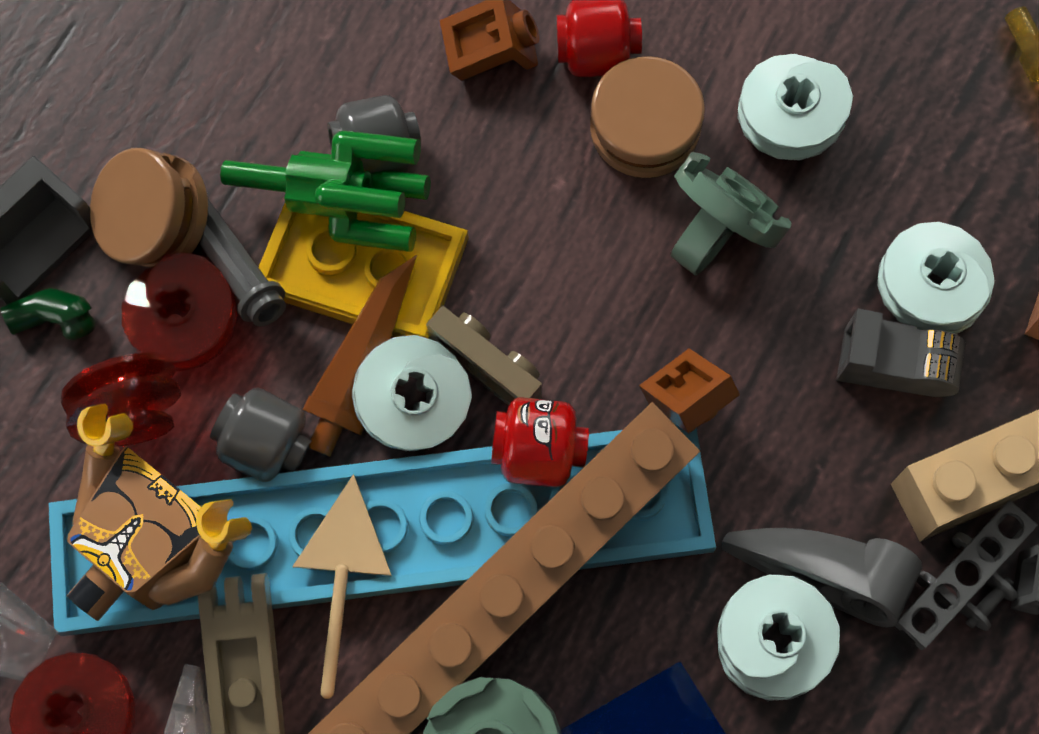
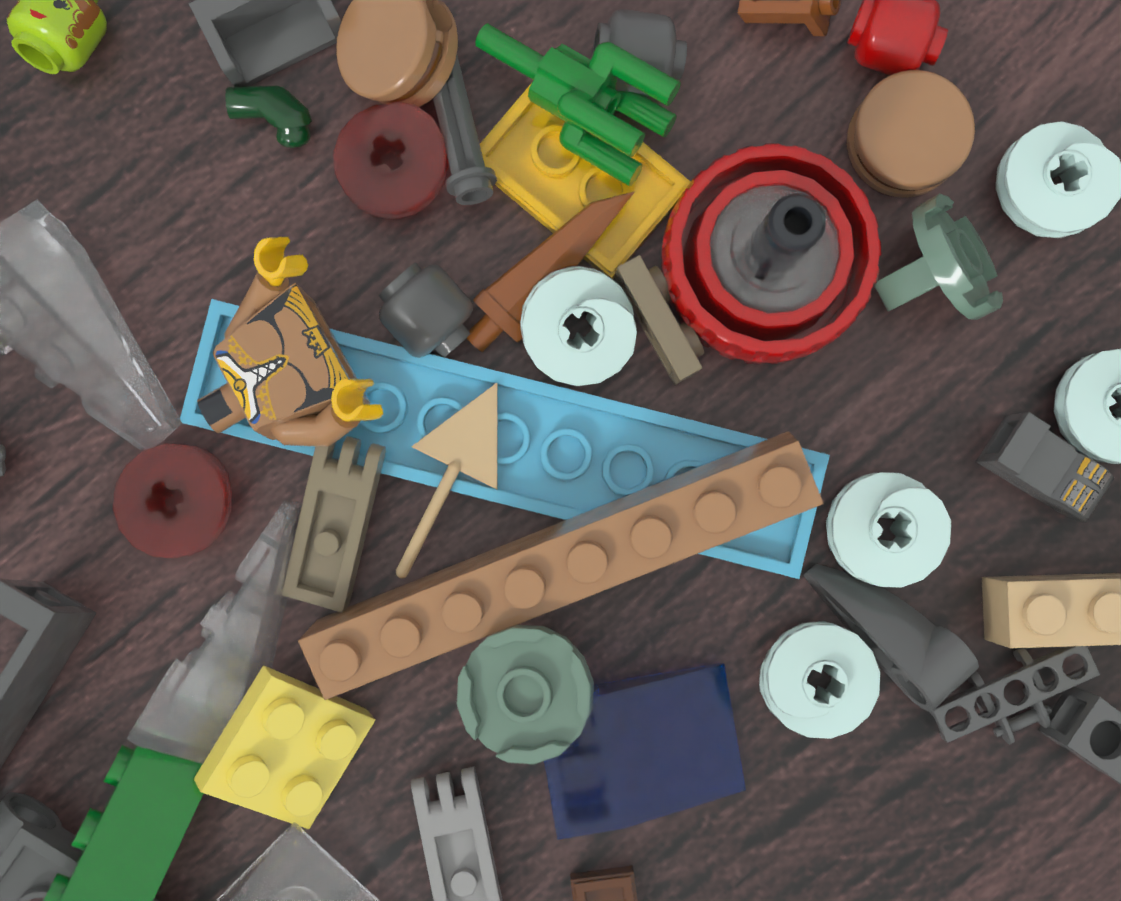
camera: 20 degrees right, 15 degrees up
(128, 385) = (312, 225): clear red piece -> none
(538, 442) = (677, 426): red head -> none
(563, 263) = (770, 253): none -> red wheel
(690, 390) = (836, 428): dark orange bracket -> none
(810, 469) = (919, 529): none -> light aqua piece

